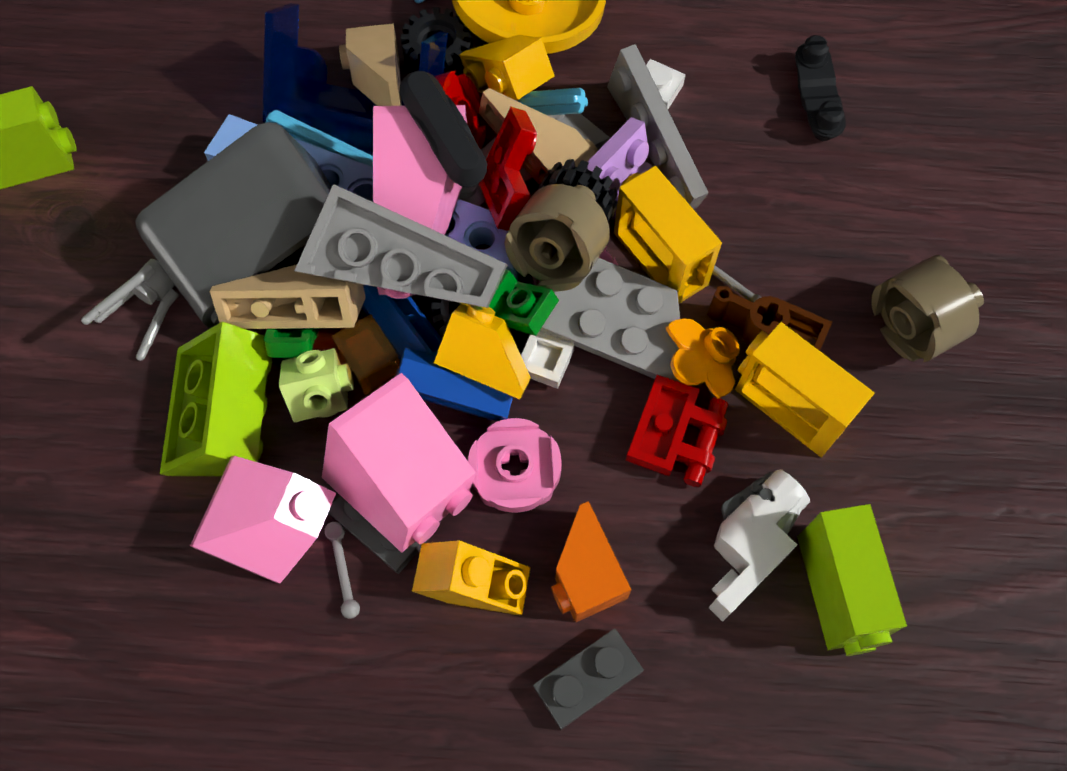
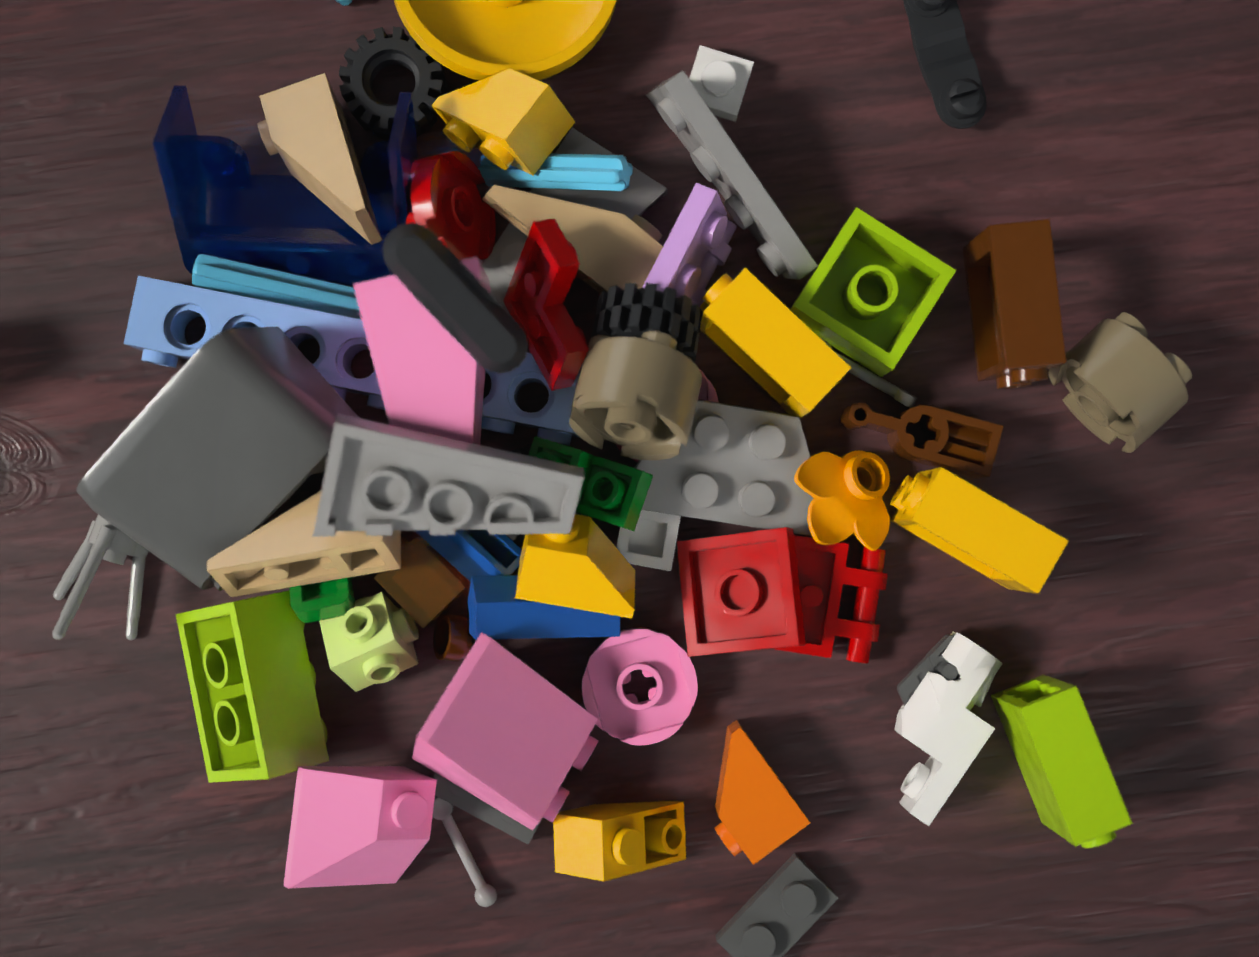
camera: 15 degrees left, 20 degrees up
(609, 406) = (741, 592): none -> red plate
(750, 217) = (871, 292): none -> lime brick
(851, 240) = (1014, 303): none -> reddish brown window

